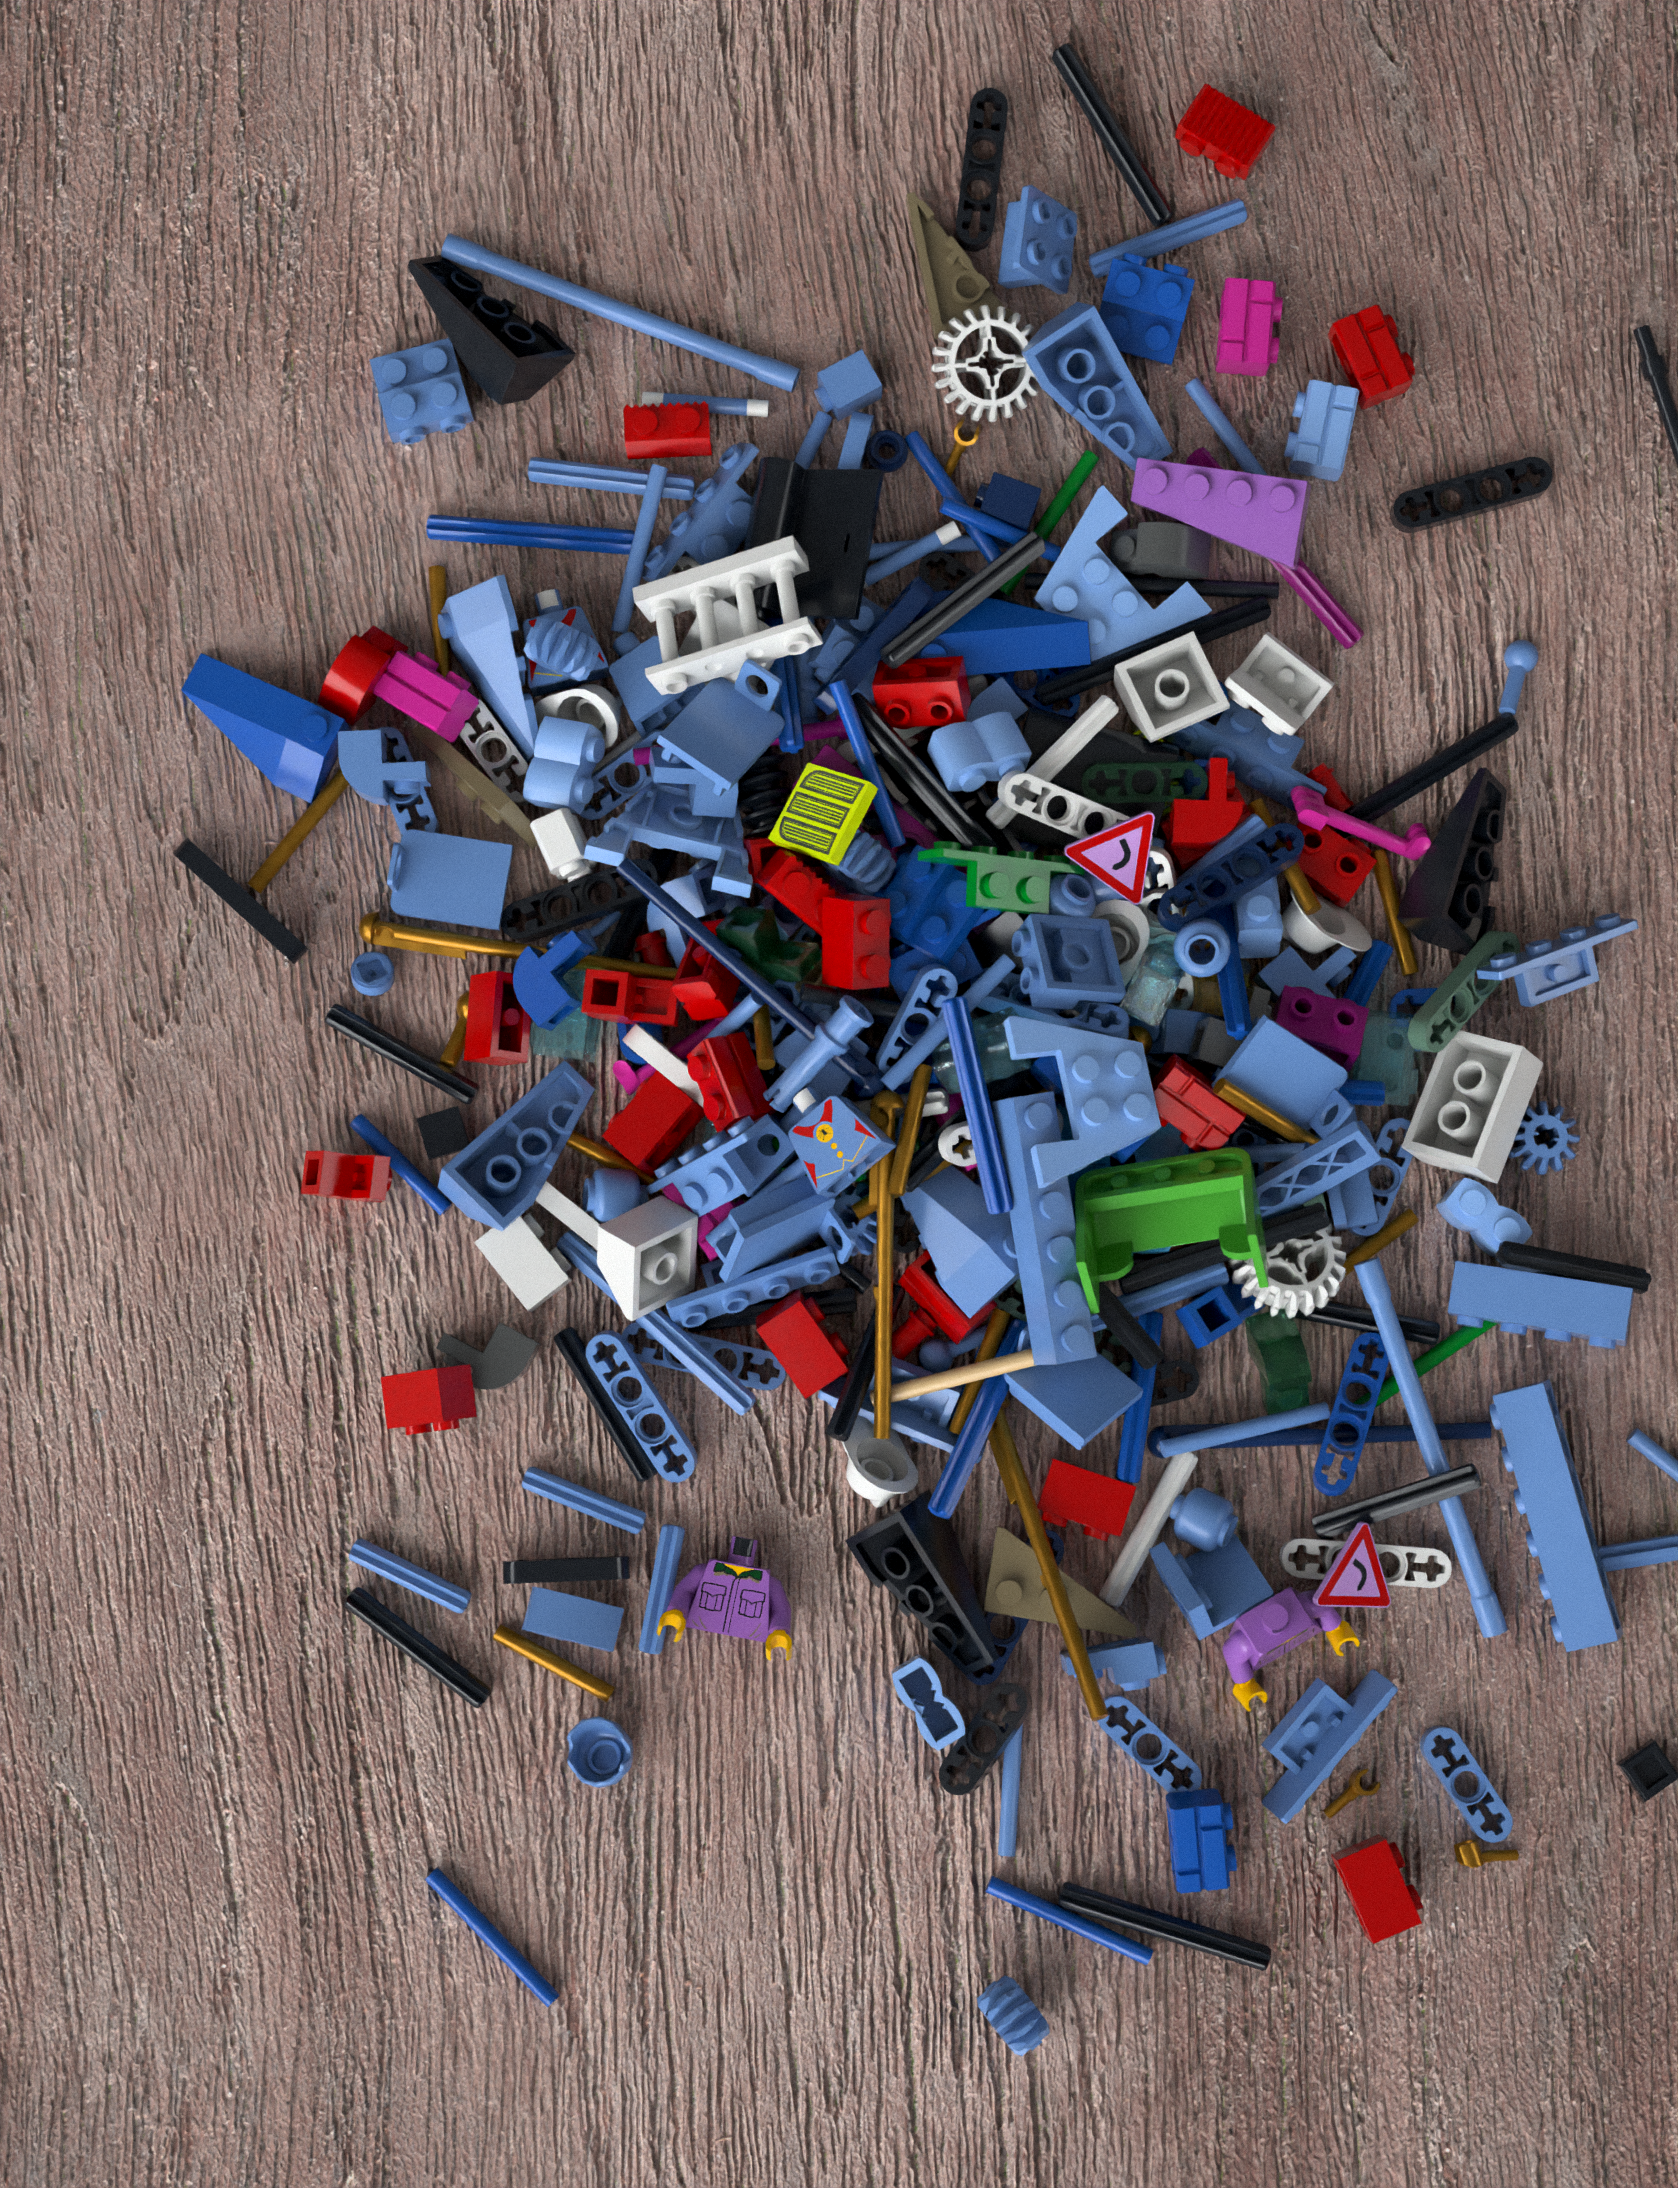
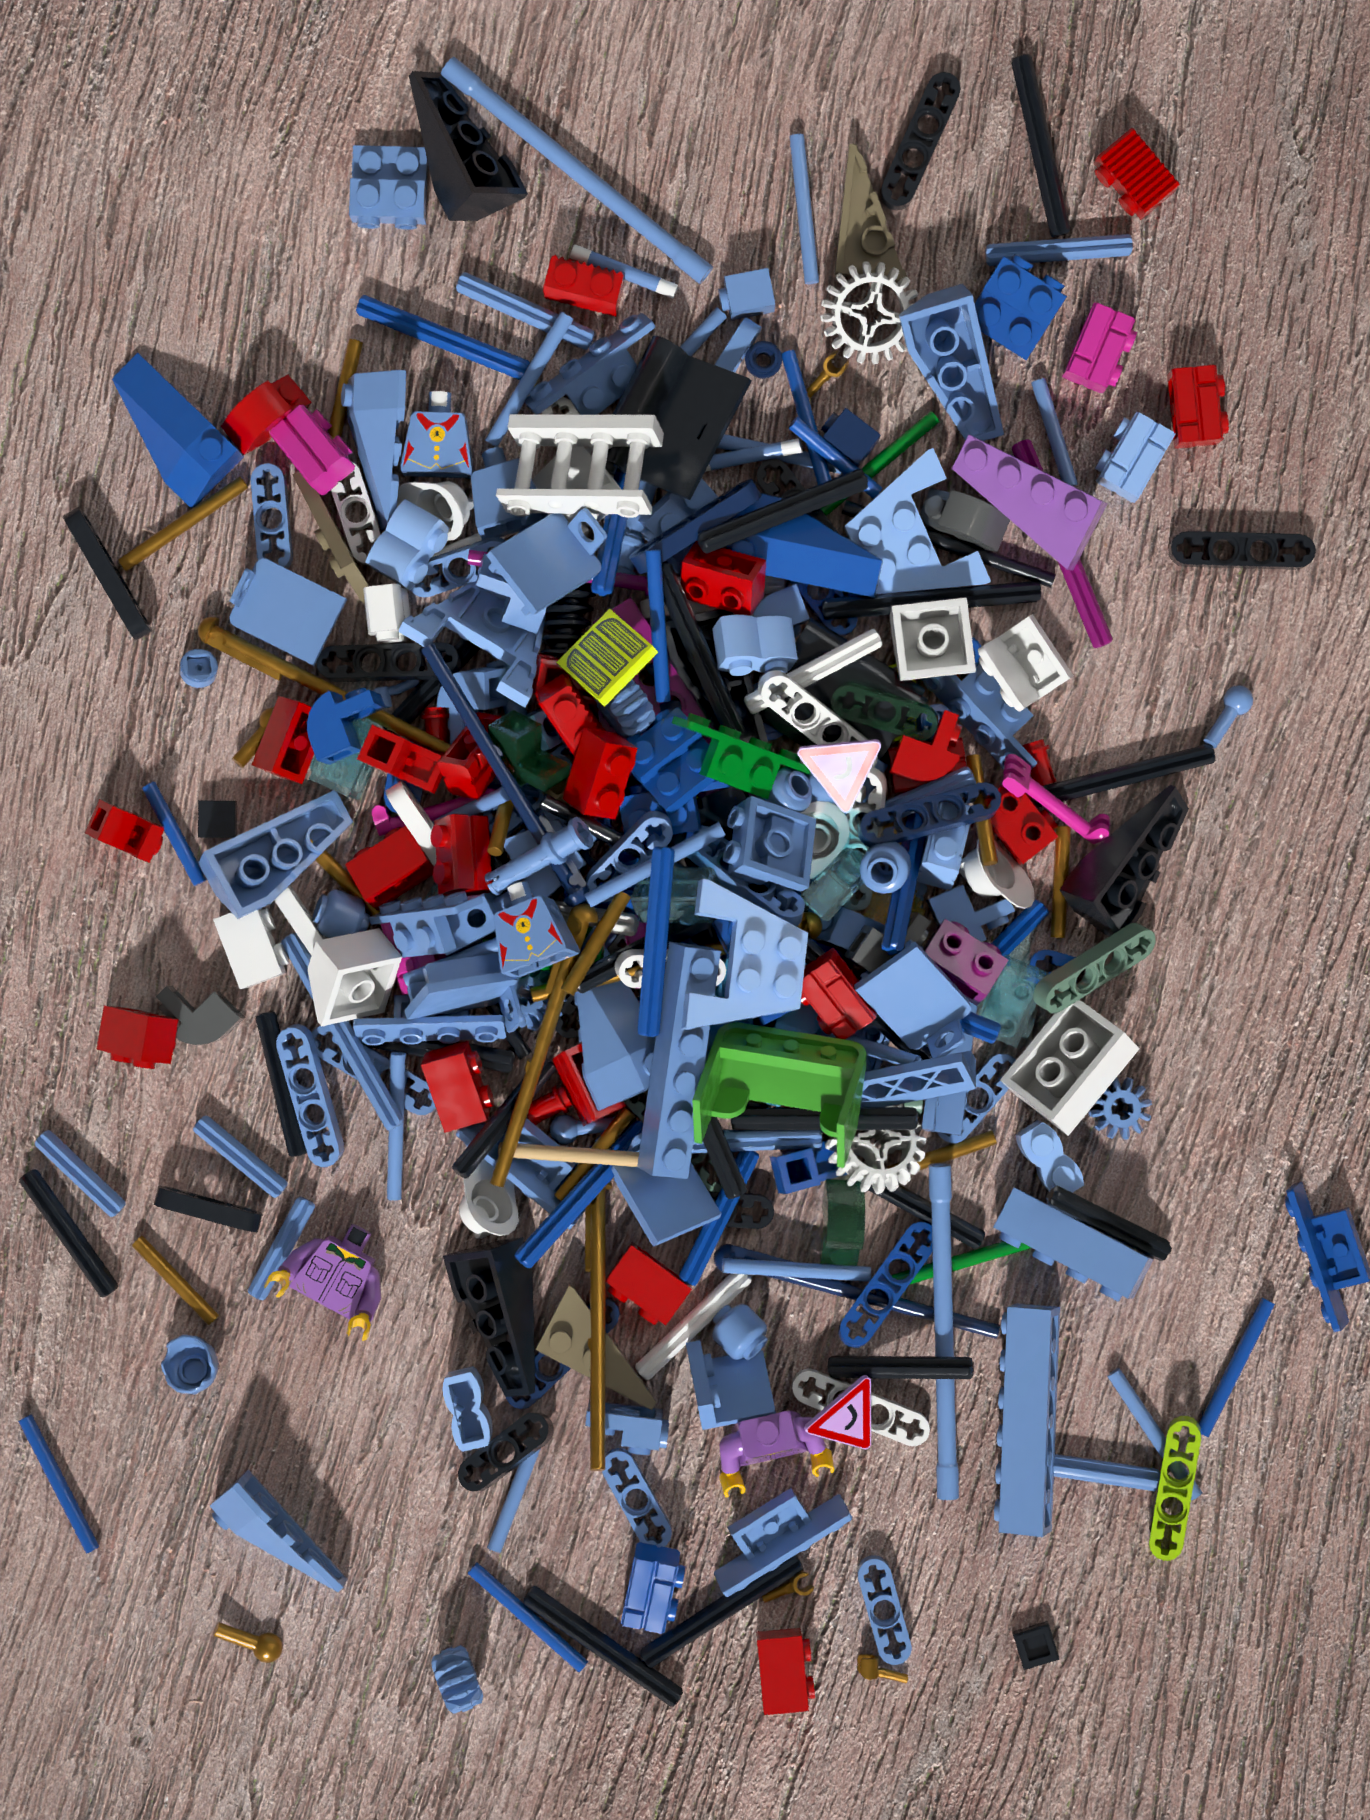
camera: 20 degrees right, 5 degrees up
(366, 768) = (243, 496): medium blue brick -> none
(402, 1054) = (203, 742): black axle -> none
(561, 649) = (434, 448): medium blue gear -> none
(573, 1619) = (201, 1250): medium blue slope -> none
(737, 1906) = (261, 1520): none -> medium blue wedge
(750, 1419) = (395, 1136): none -> medium blue bar
(783, 2050) = (265, 1647): none -> pearl gold bar
(879, 279) = (804, 209): none -> medium blue bar
(1037, 242) = (947, 221): medium blue bracket -> none
(1263, 1113) = (890, 1021): pearl gold bar -> none
(1280, 1847) = (717, 1613): none -> black axle
(1557, 965) = (1180, 970): medium blue bracket -> none

